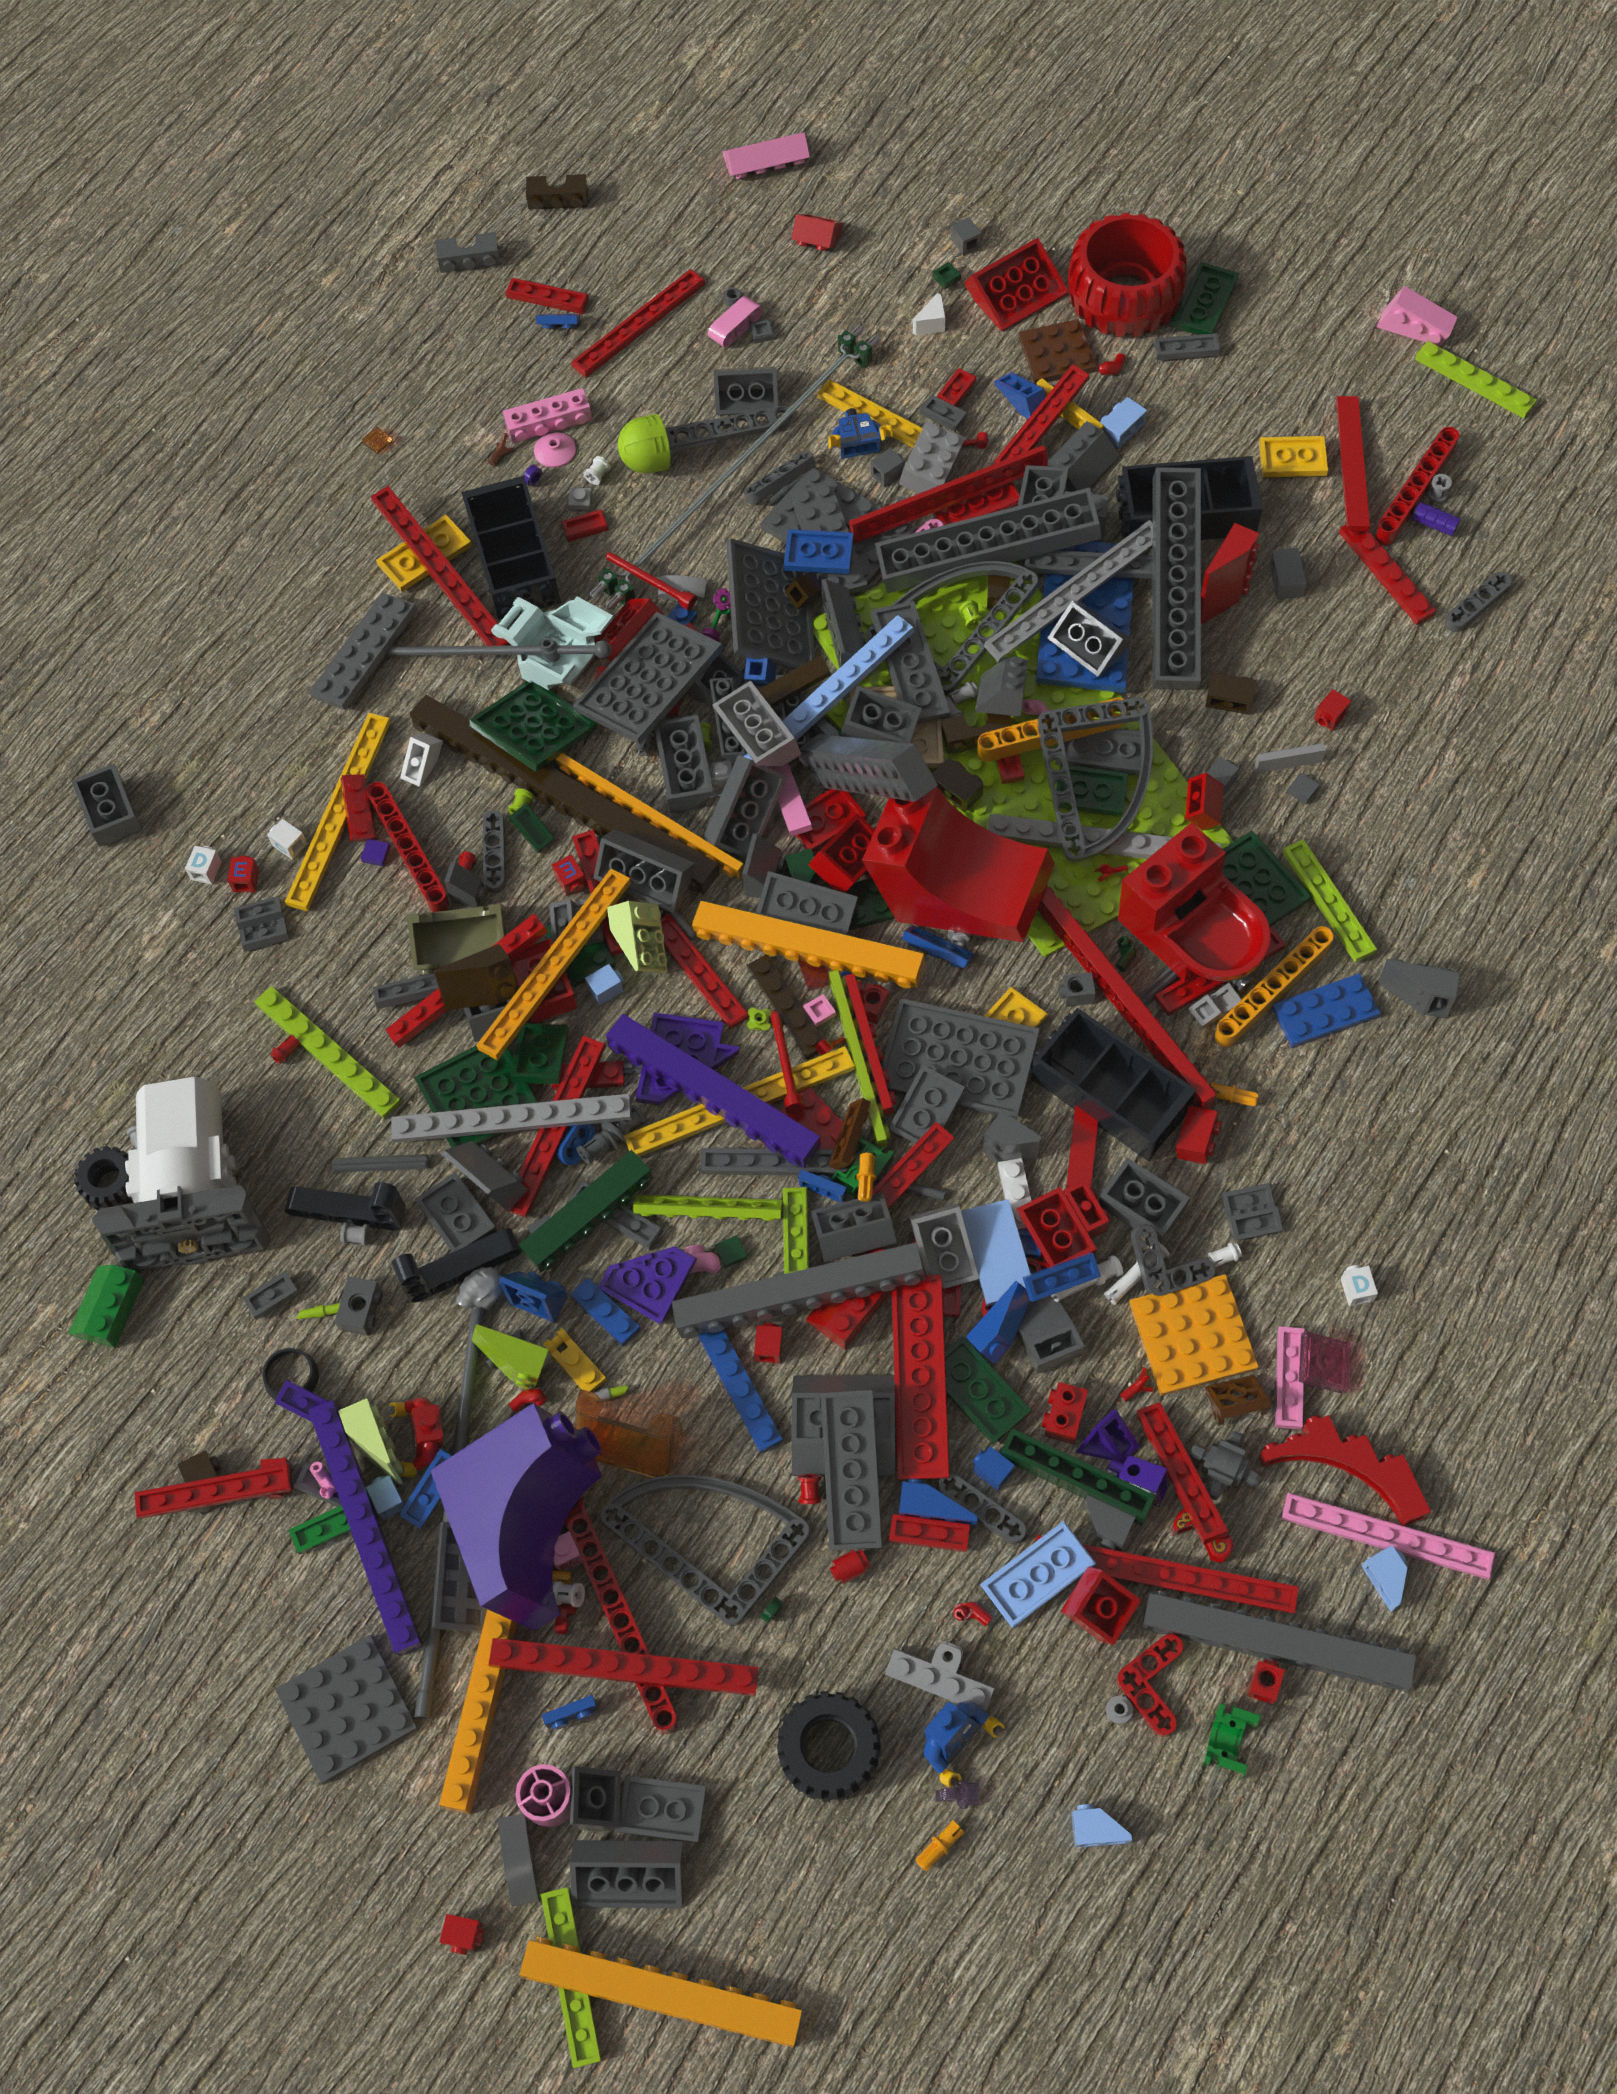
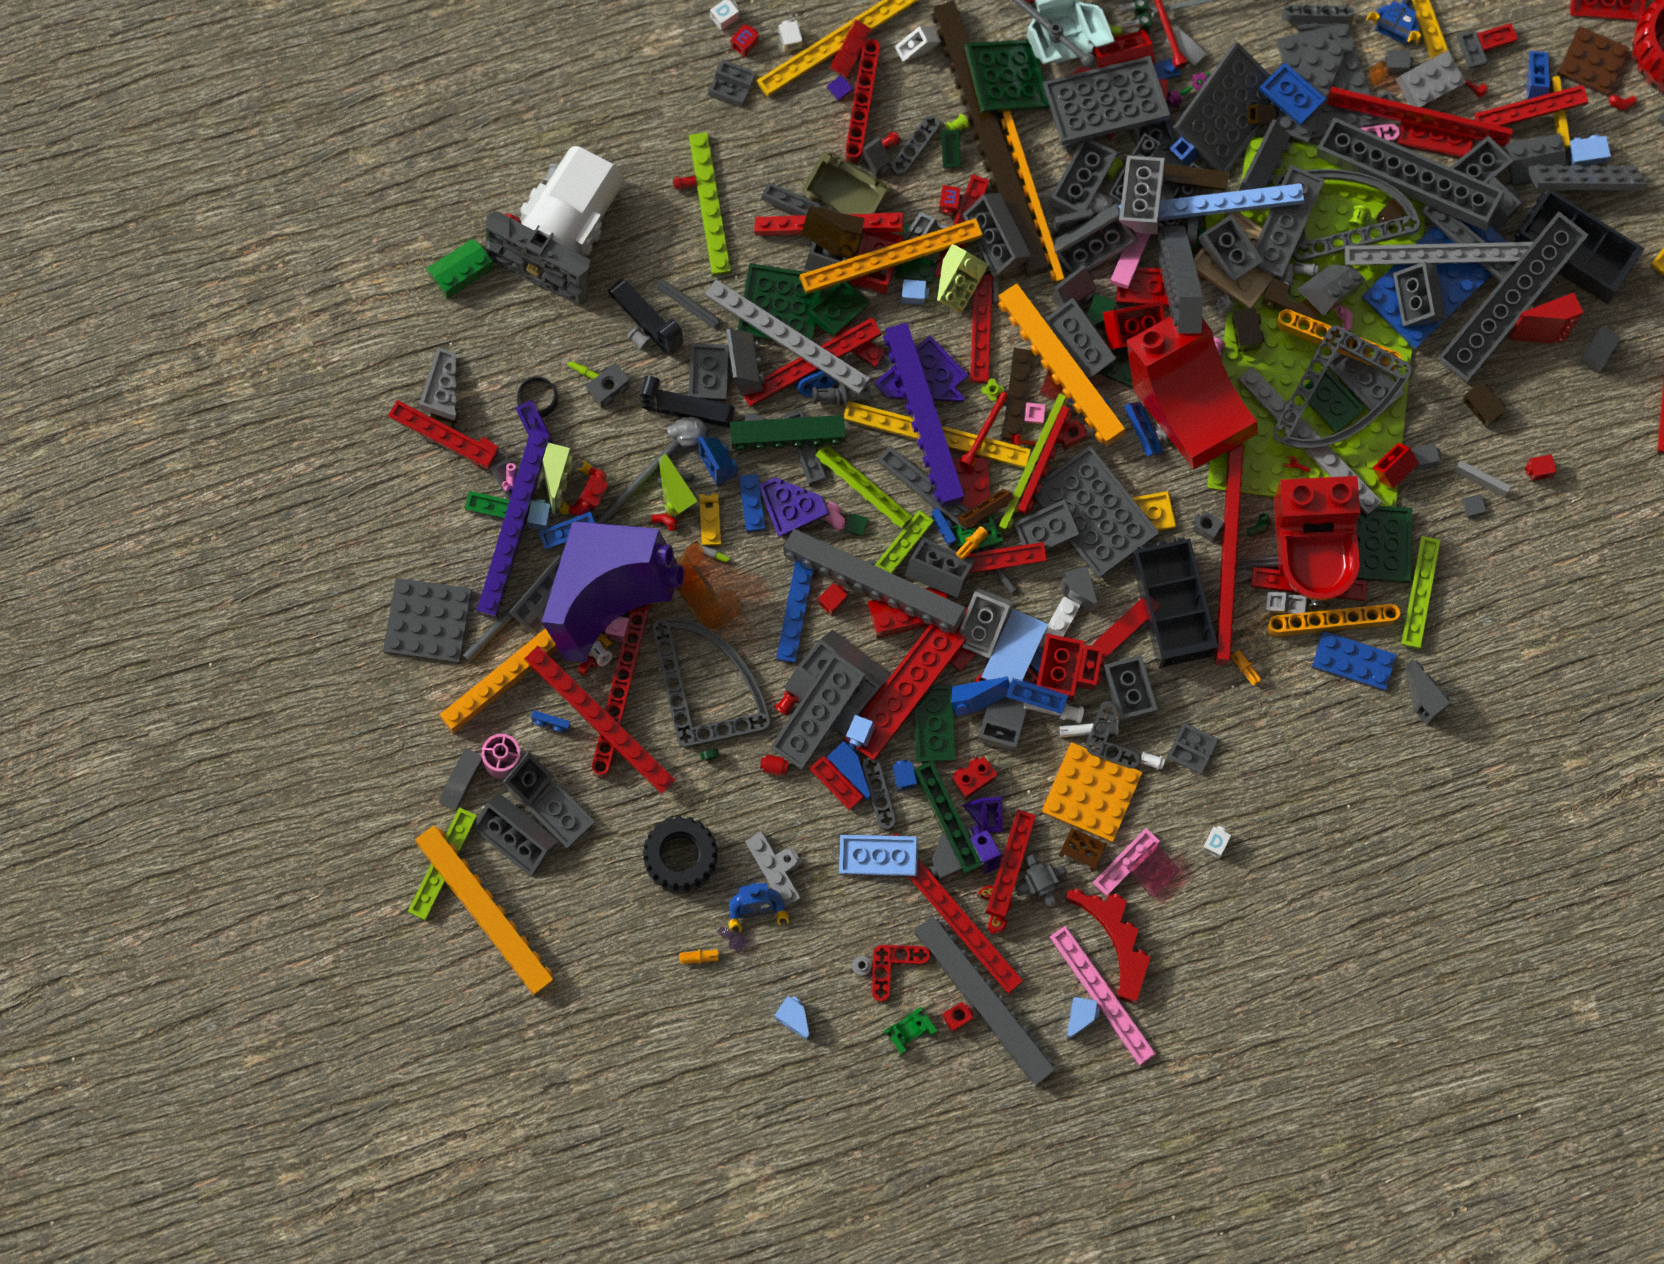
camera: 30 degrees right, 10 degrees up
(91, 1172) = (508, 175): black tyre -> none
(173, 1441) = (440, 386): none -> light grey wing
(270, 1295) = (561, 337): dark grey plate -> none
(462, 1934) = (400, 794): red brick -> none
(703, 809) = (1067, 222): none -> dark grey tile
(878, 487) = (1378, 73): none -> clear orange tile
(912, 1457) = (860, 731): none -> light blue brick
(972, 1610) = (824, 846): red arm -> none
(1010, 769) = (1291, 344): red plate -> none
(1100, 1605) = (898, 900): red brick -> none
(1137, 1386) = (1031, 796): red bar -> none
(1143, 440) = (1586, 177): none -> dark grey plate
(1198, 1134) = (1200, 675): red brick -> none

